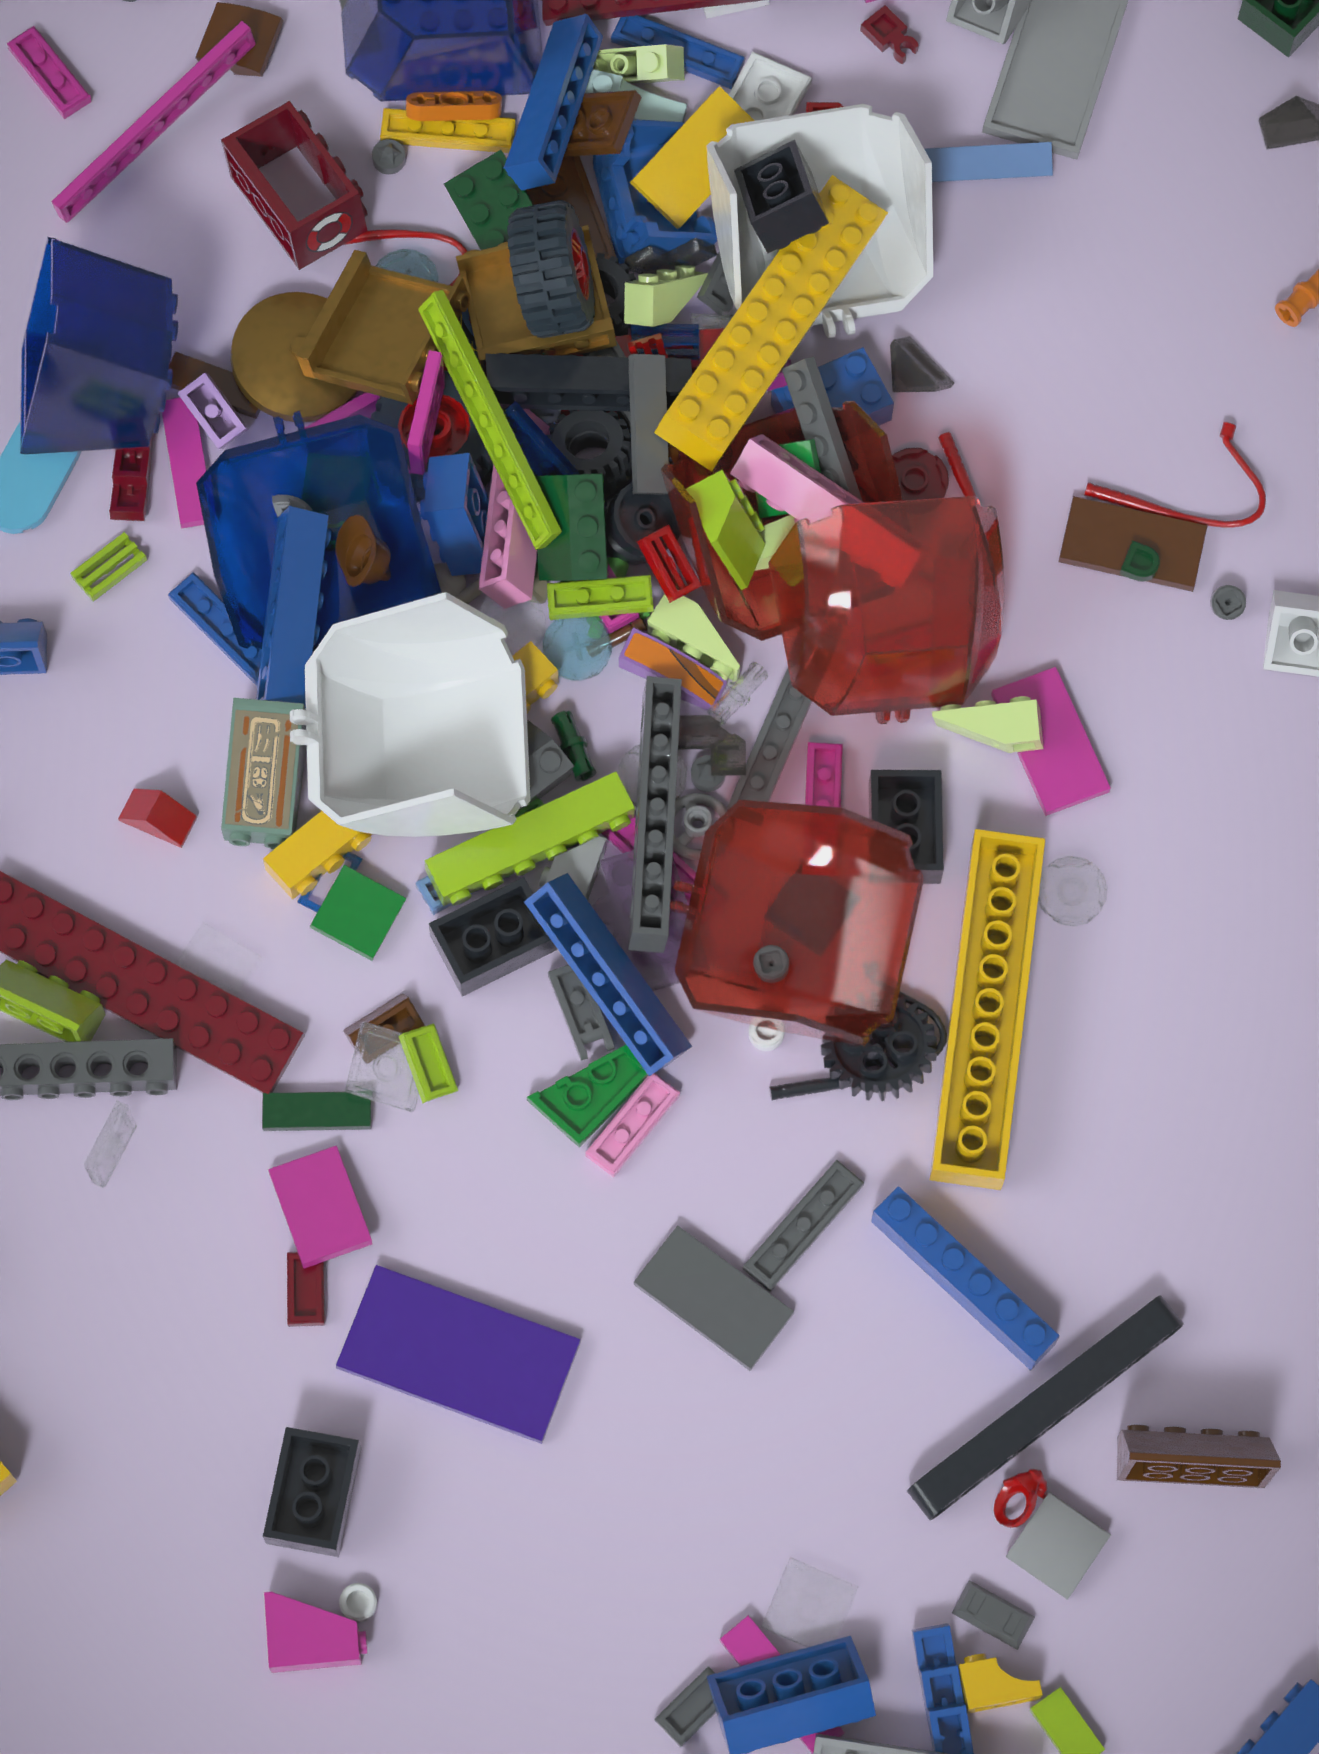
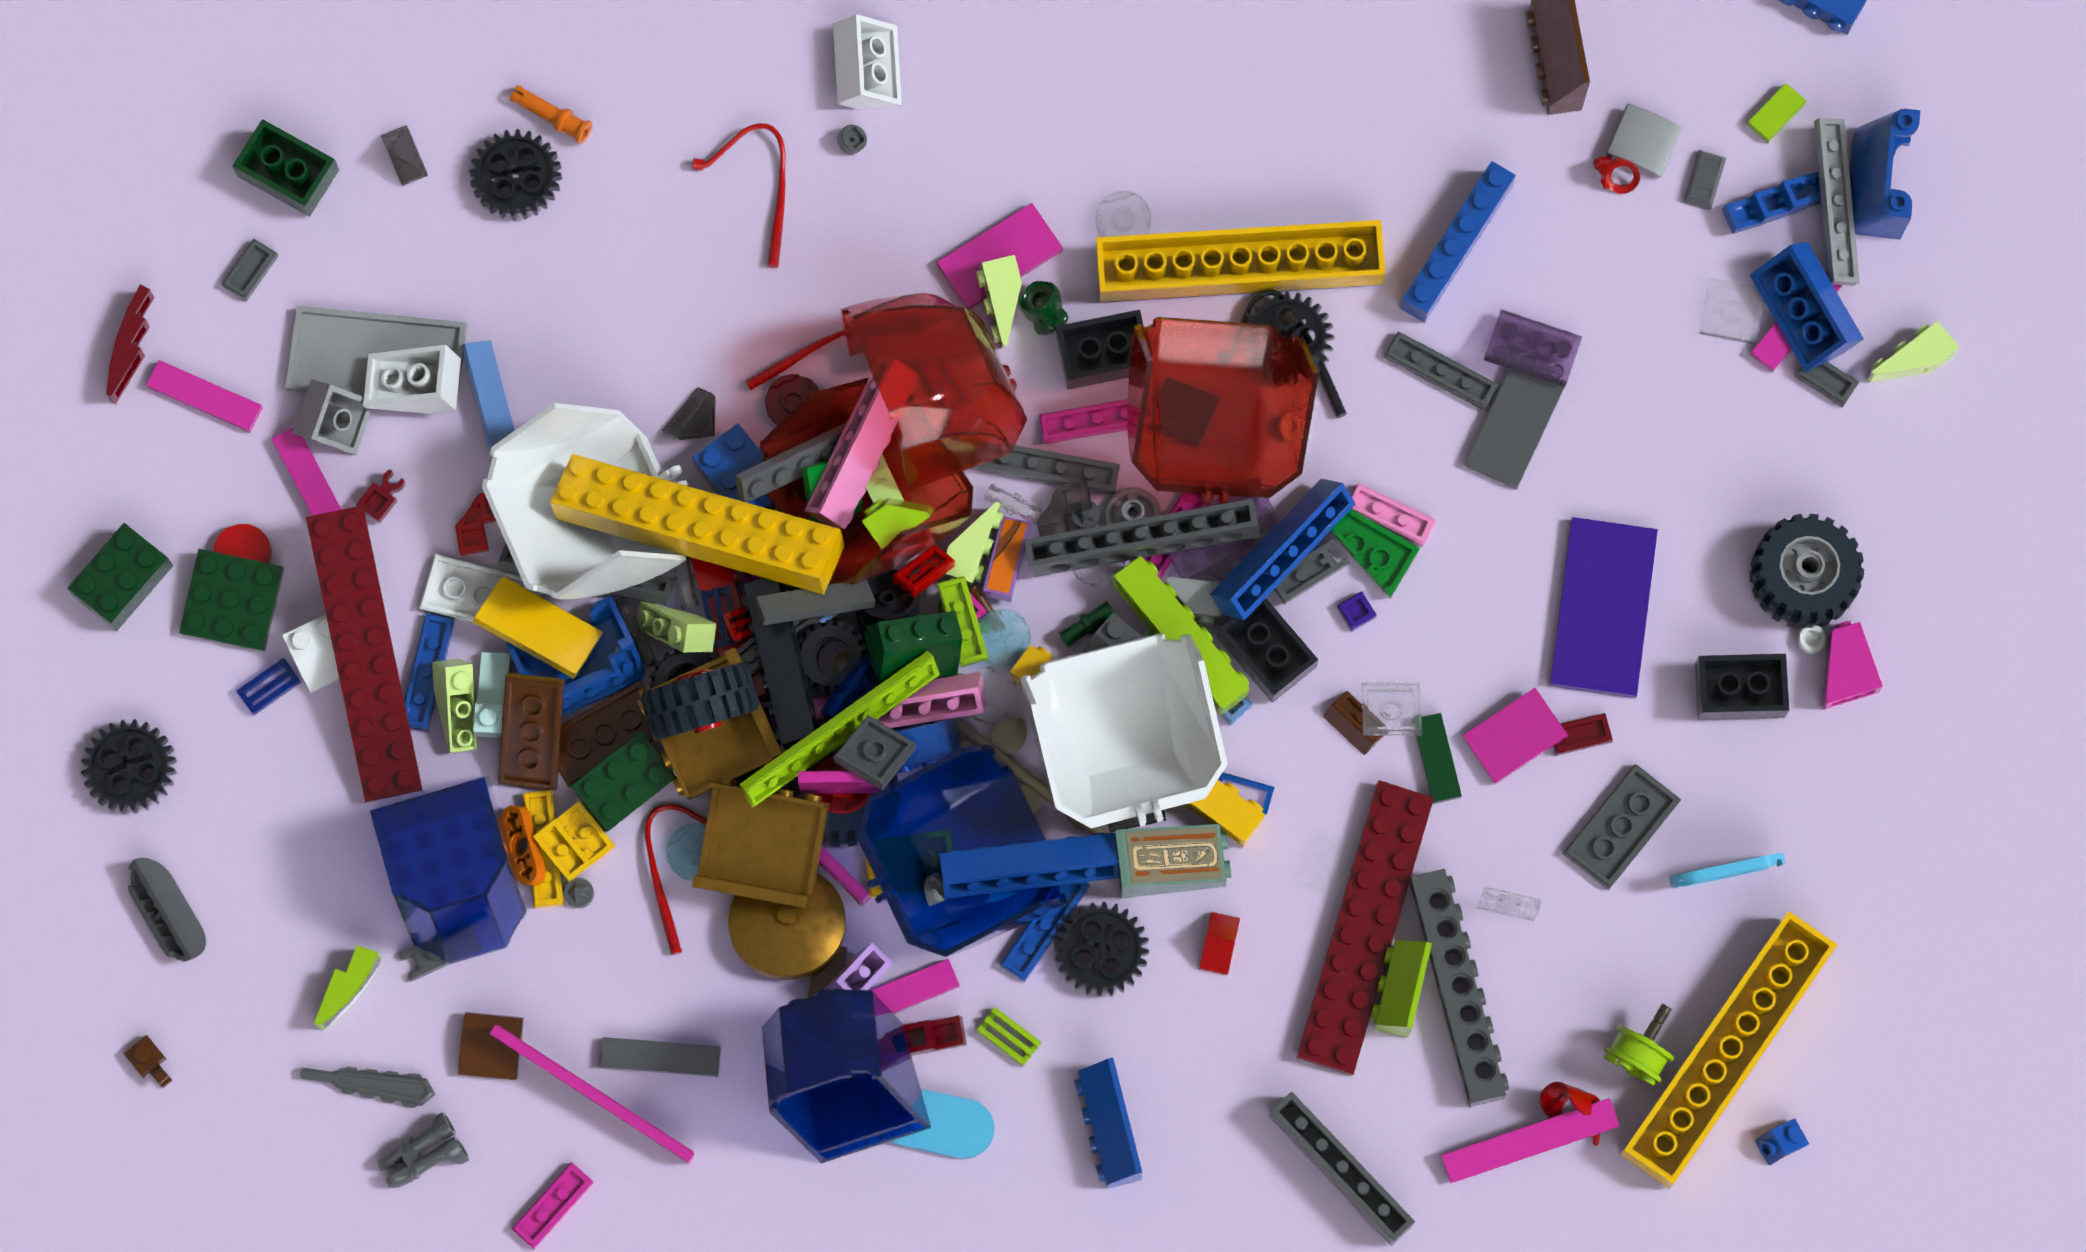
camera: 100 degrees left, 5 degrees up
(84, 1416) = (1727, 870): none -> medium azure tile
(163, 706) = (1126, 957): none -> black gear
(179, 1312) = (1622, 826): none -> dark grey tile
(182, 206) = (660, 1057): none -> dark grey tile
(269, 139) = (654, 976): dark red hose -> none
(358, 912) = (1267, 762): green tile -> none
(361, 553) = (964, 823): reddish brown piece -> none
(428, 1063) = (1380, 678): lime tile -> none
(441, 154) = (574, 841): none -> yellow slope
(444, 437) = (875, 752): none -> dark grey tile
(445, 1644) = (1801, 595): none -> black wheel
(520, 1058) = (1356, 611): none -> dark purple tile
(553, 102) = (518, 750): blue brick -> none
(771, 964) = (1240, 430): dark grey tile -> none
(781, 196) = (588, 533): black brick -> none
(806, 1338) = (1533, 348): none -> clear purple plate
(975, 771) = (1043, 307): none -> dark green hair
(989, 1687) = (1763, 169): yellow arch -> none
(1015, 80) = (413, 380): none -> white slope
(1045, 1407) = (1542, 166): black beam -> none
(1102, 533) = (814, 222): reddish brown tile -> none
(1140, 562) = (833, 210): dark green tile -> none
(1278, 233) = (520, 198): none -> black gear

